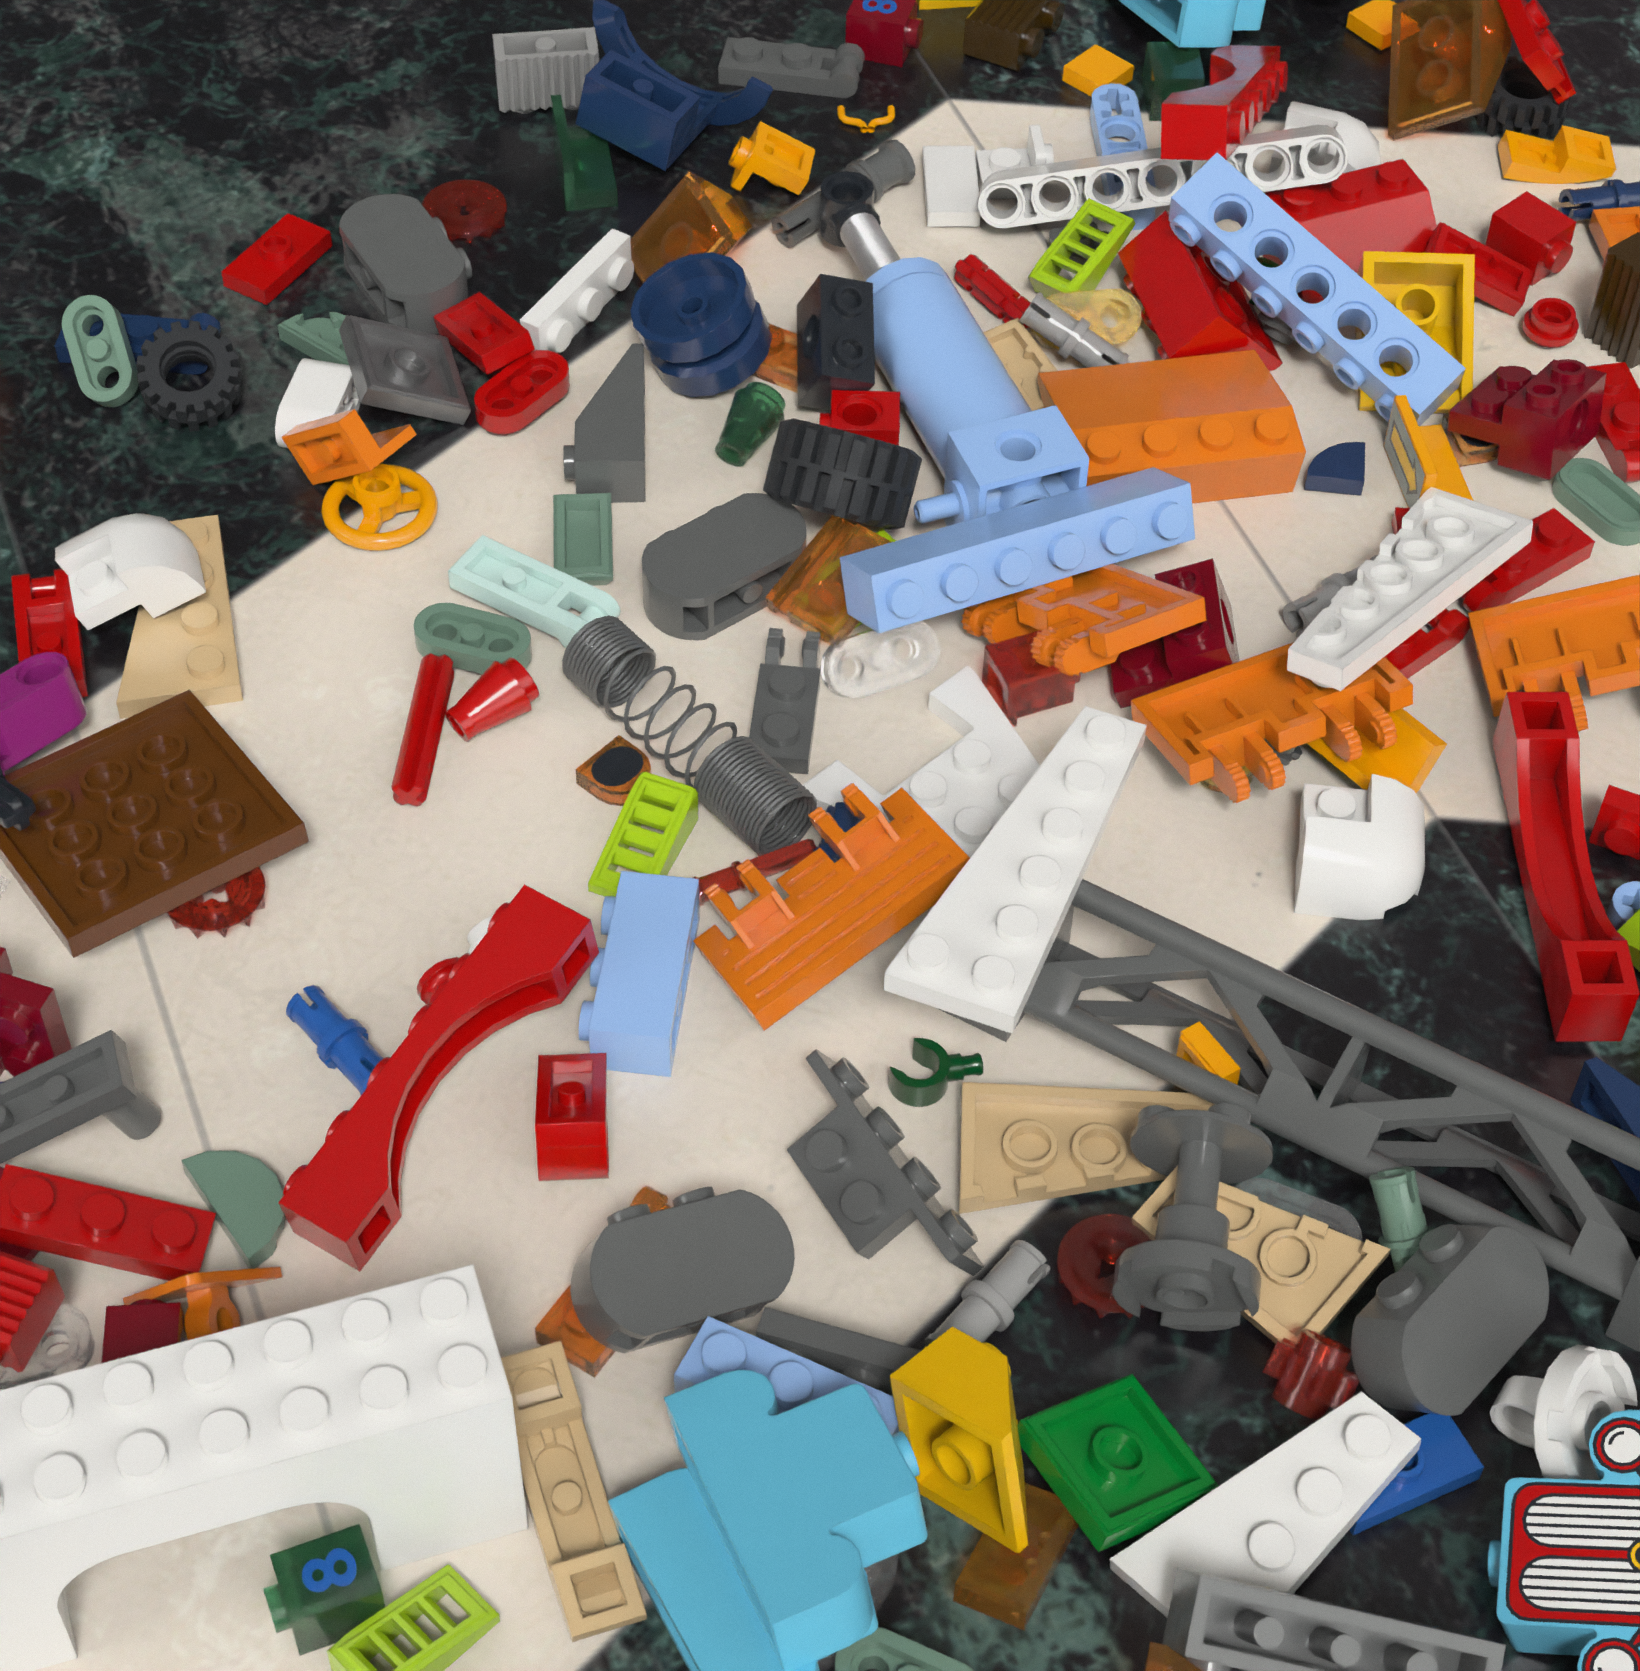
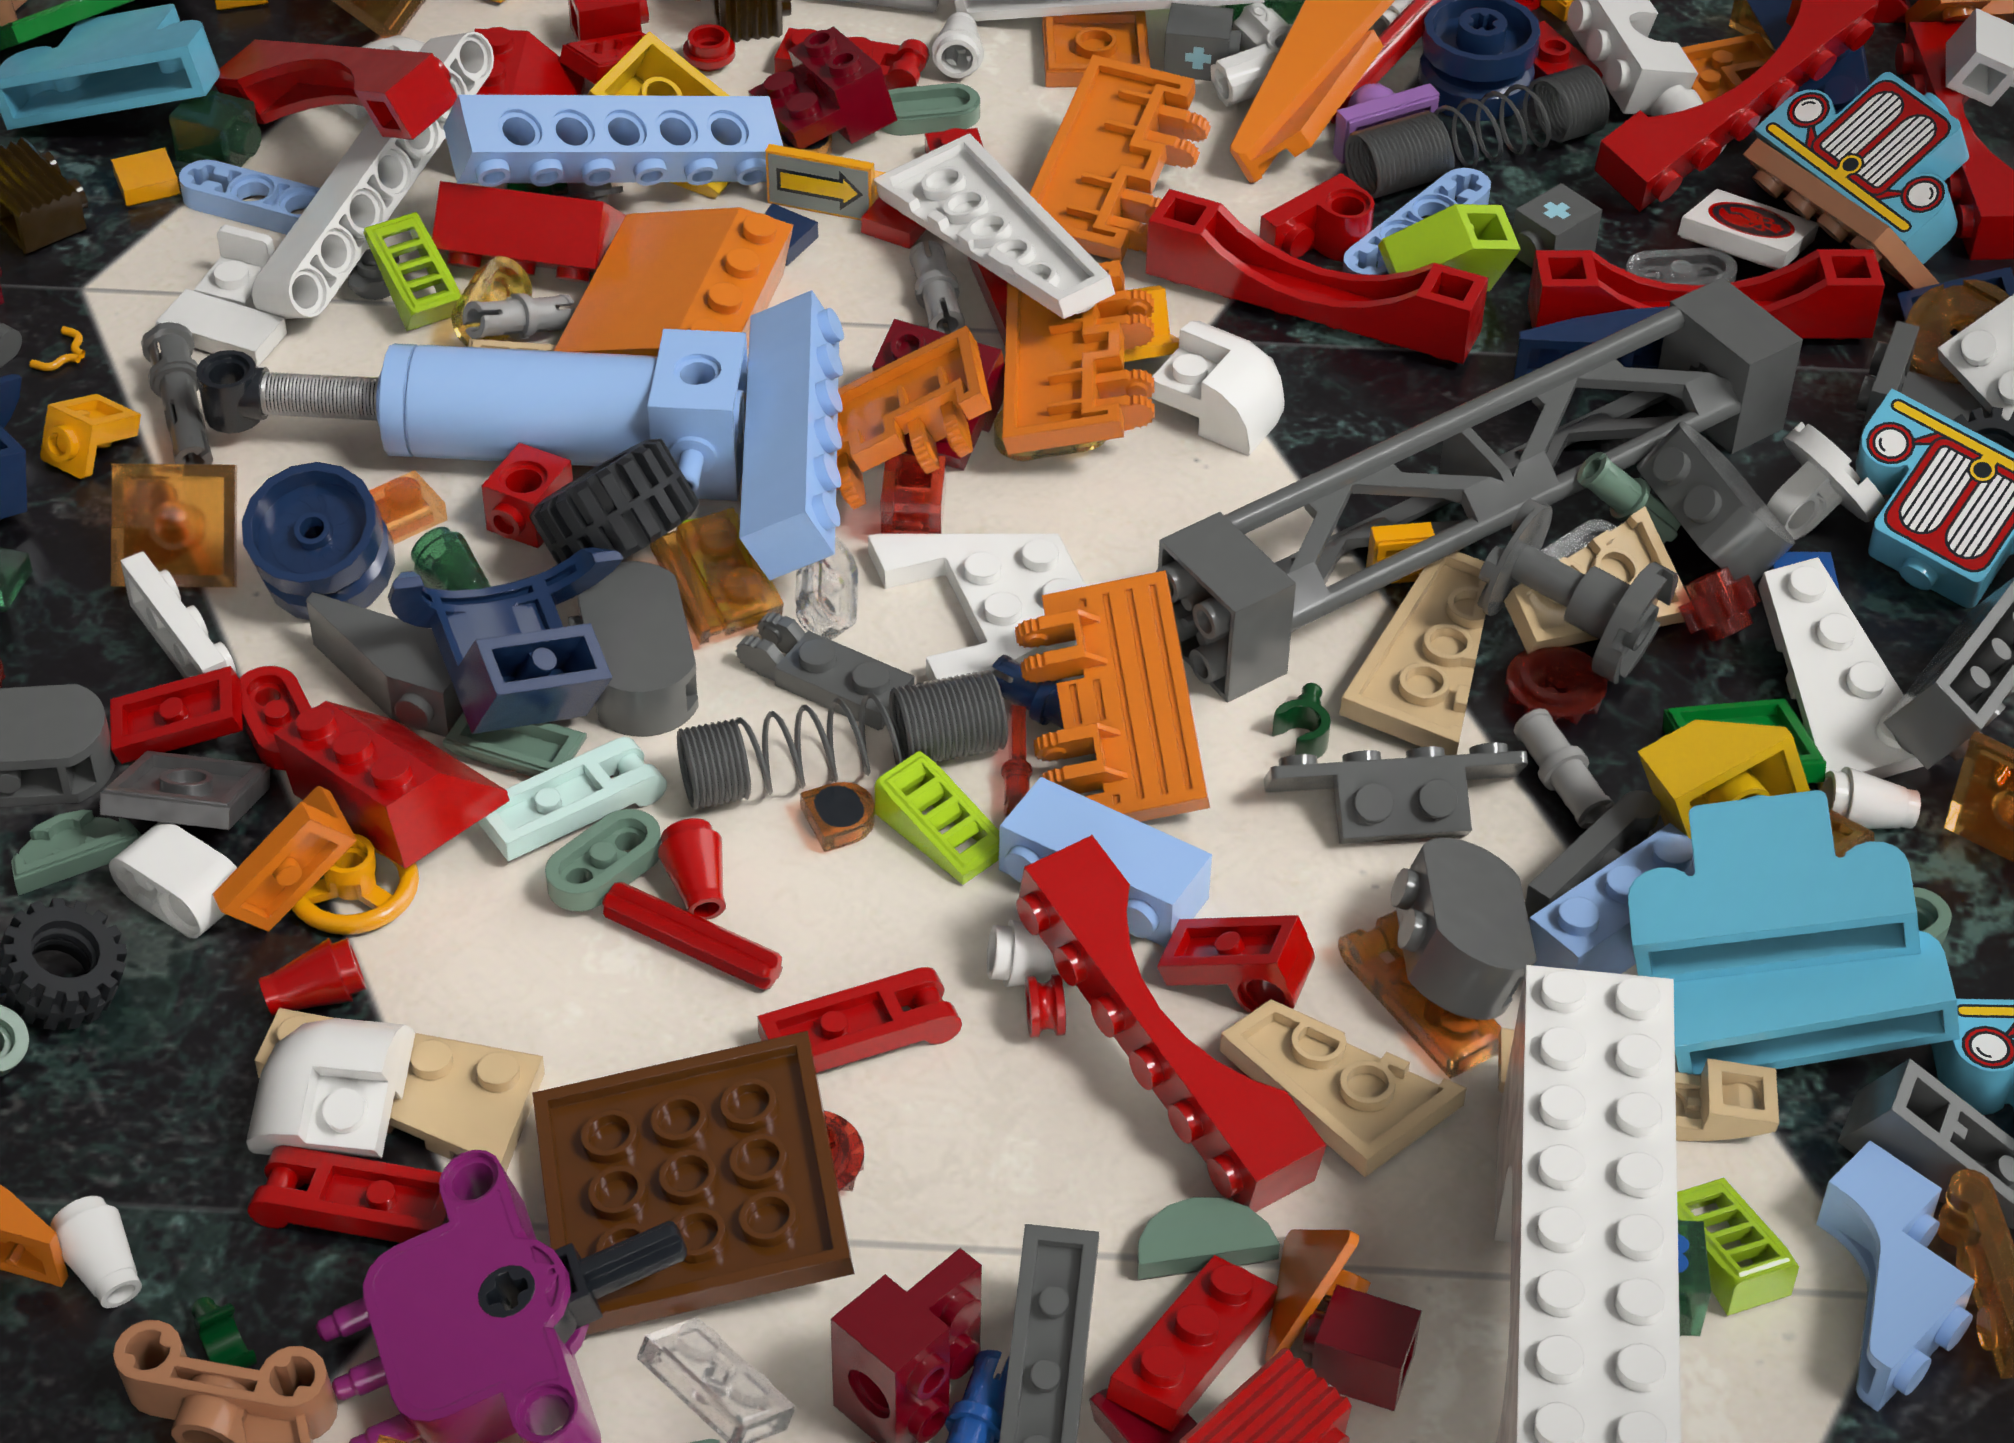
camera: 65 degrees left, 5 degrees down
(261, 525) = (315, 979): none -> red cone
(339, 1040) = (1058, 1108): blue pin -> none
(374, 871) = (868, 1018): none -> red plate
(468, 1220) = (1352, 1098): none -> tan wing
(472, 469) = (385, 779): none -> red slope
(637, 467) = (509, 645): none -> dark blue piece
(834, 339) = (398, 457): black brick -> none
(990, 289) = (360, 356): red axle -> none
(1006, 905) = (1269, 581): white wing -> none
(1100, 1606) = (1871, 799): none -> white cone

